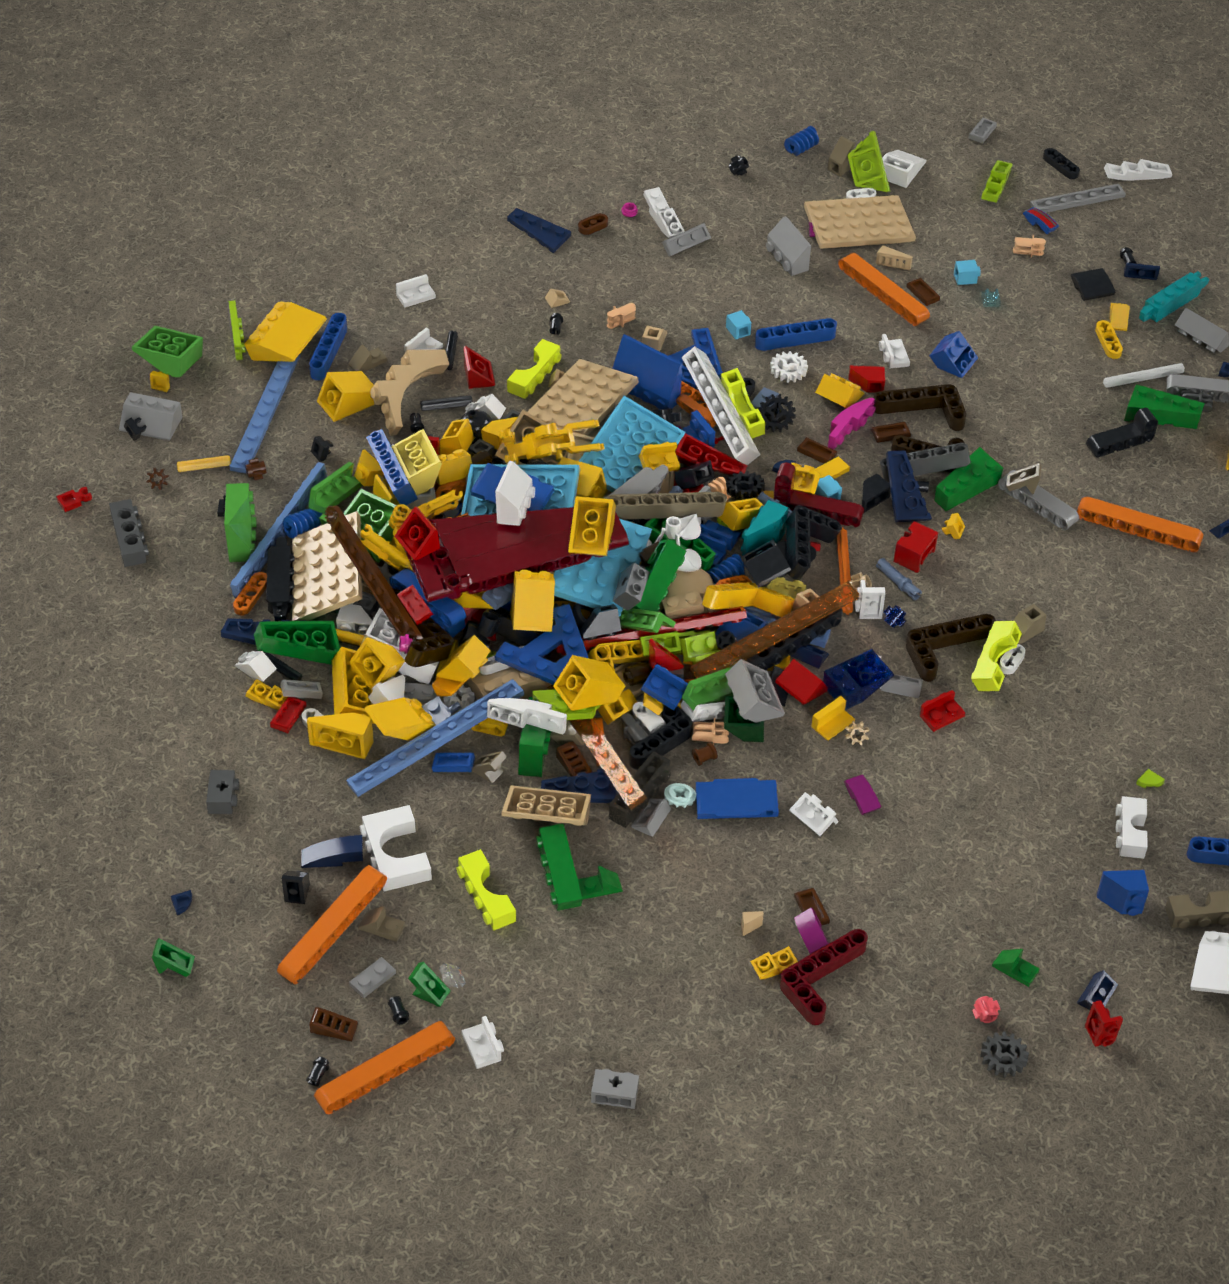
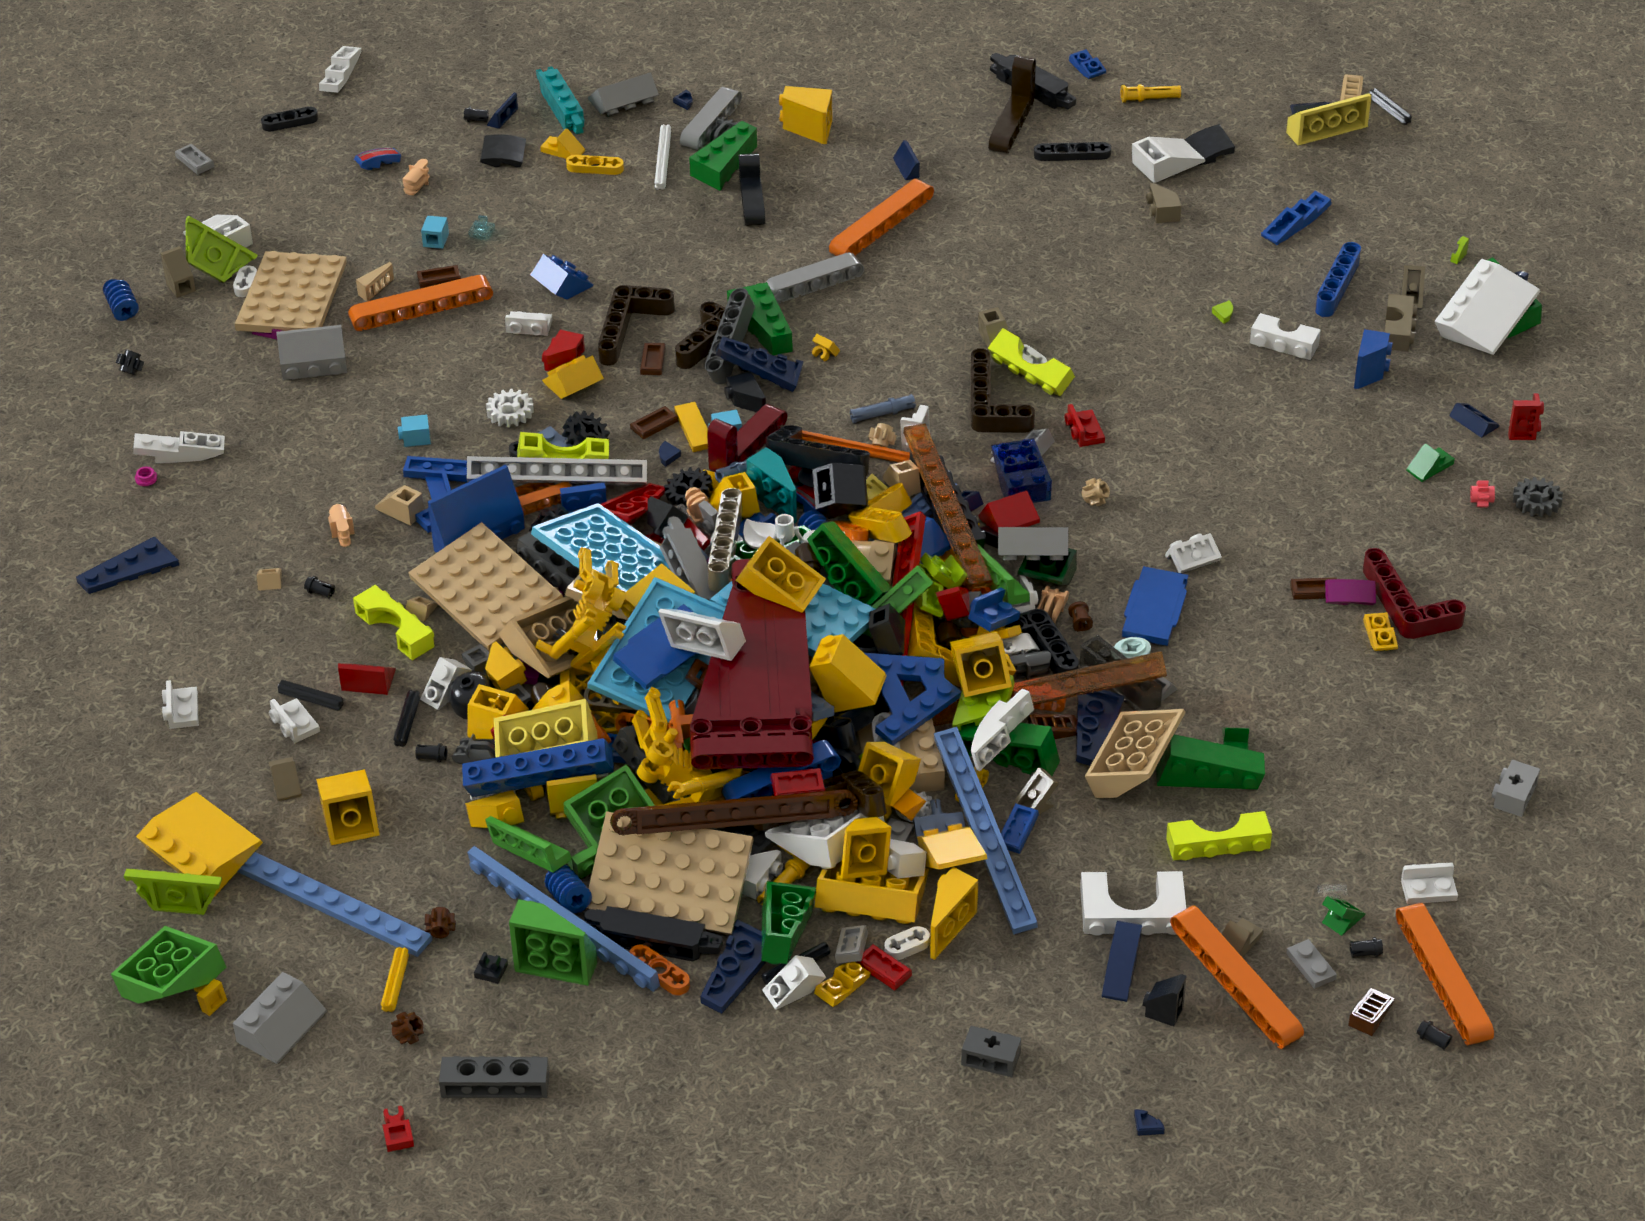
camera: 70 degrees left, 5 degrees down
(133, 429) = (296, 1038): black tile -> none
(169, 956) = (1241, 1141): green slope -> none
(320, 448) = (433, 851): black tile -> none
(328, 346) = (244, 809): blue beam -> none
(389, 392) = (360, 741): tan arch -> none
(404, 643) = (853, 808): dark pink plate -> none
(418, 535) = (724, 730): red slope -> none
(593, 224) = (153, 513): reddish brown plate -> none
(631, 586) = (847, 584): dark grey brick -> none
(660, 454) = (637, 530): yellow bracket -> none
(686, 239) = (236, 439): light grey tile -> none
(724, 638) = (939, 545): black wheel -> none
(751, 921) = (1326, 635): tan slope -> none
(795, 334) = (458, 389): blue beam -> none
(806, 478) = (697, 439): yellow bracket -> none
(832, 719) = (1064, 508): yellow panel -> none
(850, 419) = (623, 383): dark pink slope -> none
(863, 794) = (1174, 510): magenta slope -> none
(895, 616) = (941, 422): clear blue gear -> none
(915, 546) = (848, 378): red piece -> none
(996, 181) = (287, 171): lime slope -> none
(1025, 477) = (798, 266): dark tan slope -> none
(1079, 198) = (355, 124): light grey tile -> none

